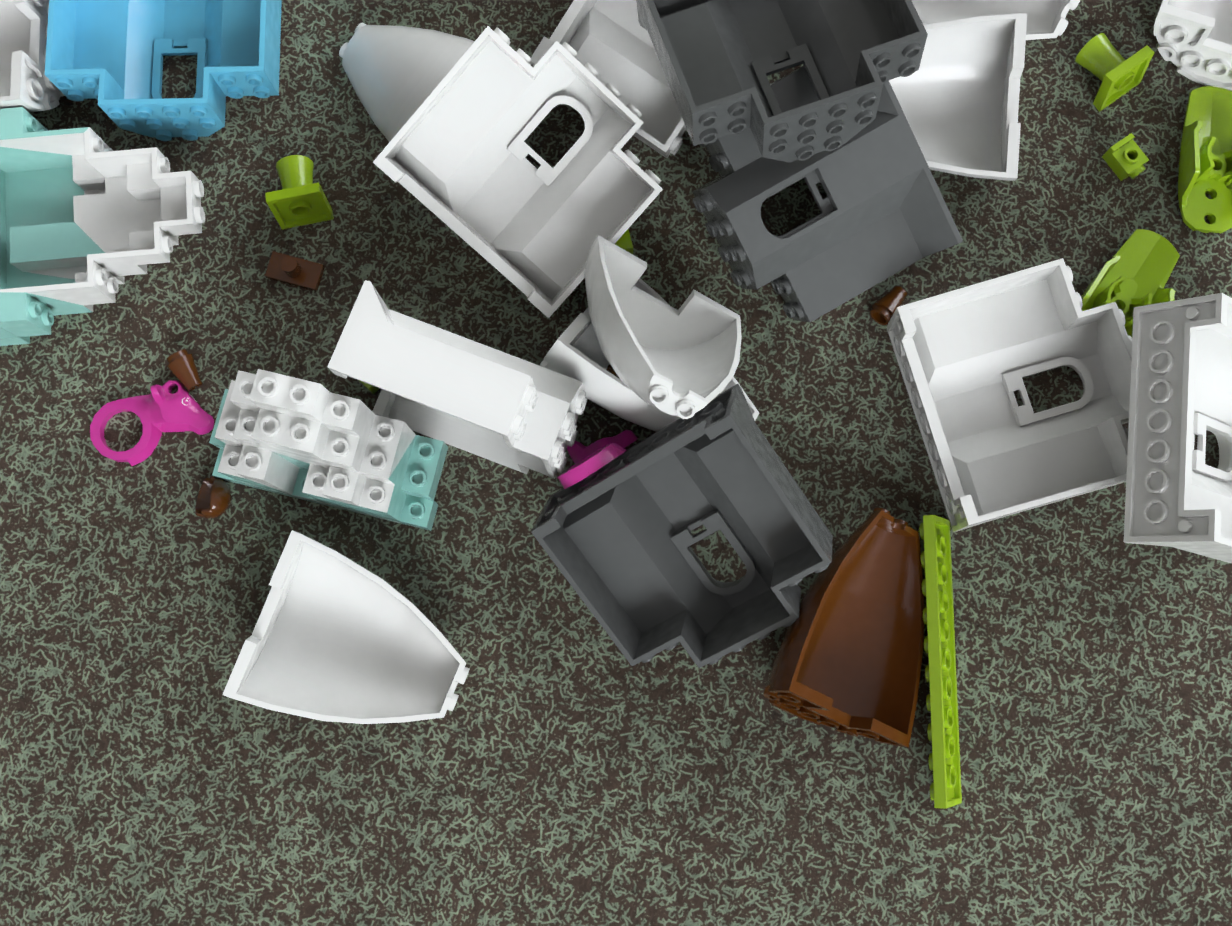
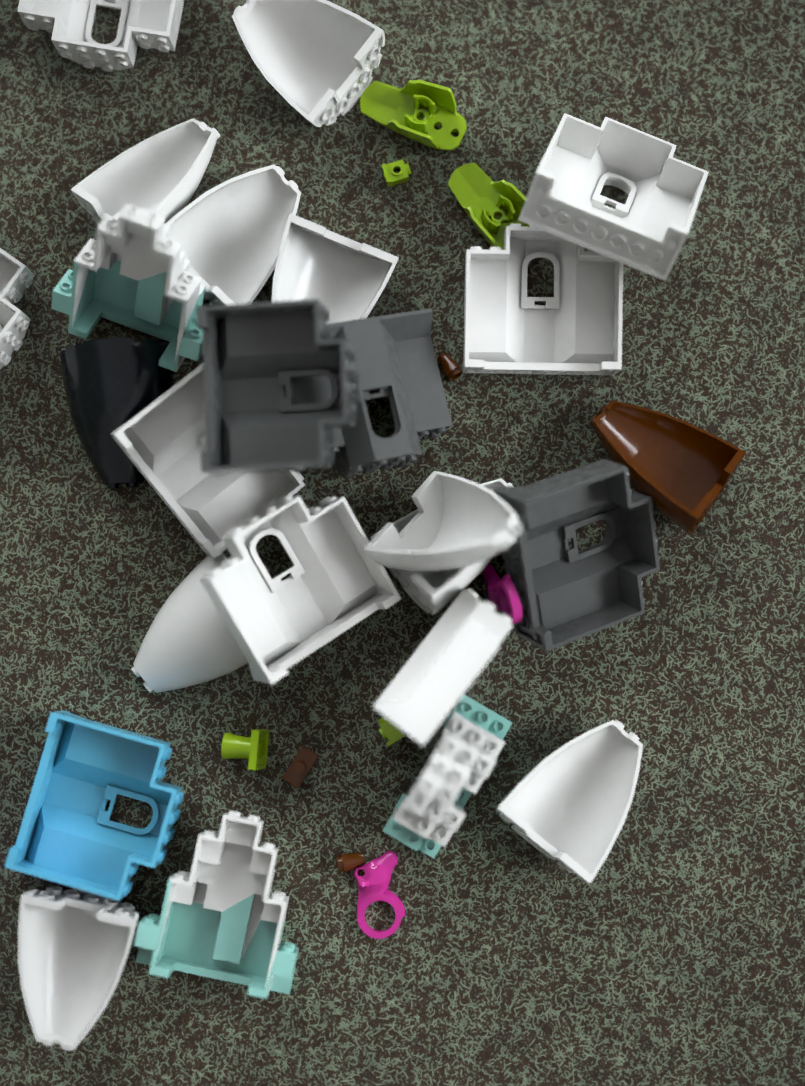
camera: 75 degrees left, 5 degrees up
(213, 498) = (449, 871): reddish brown hair -> none
(941, 670) = (695, 411): lime plate -> none
(1112, 69) = (330, 161): lime plant -> none

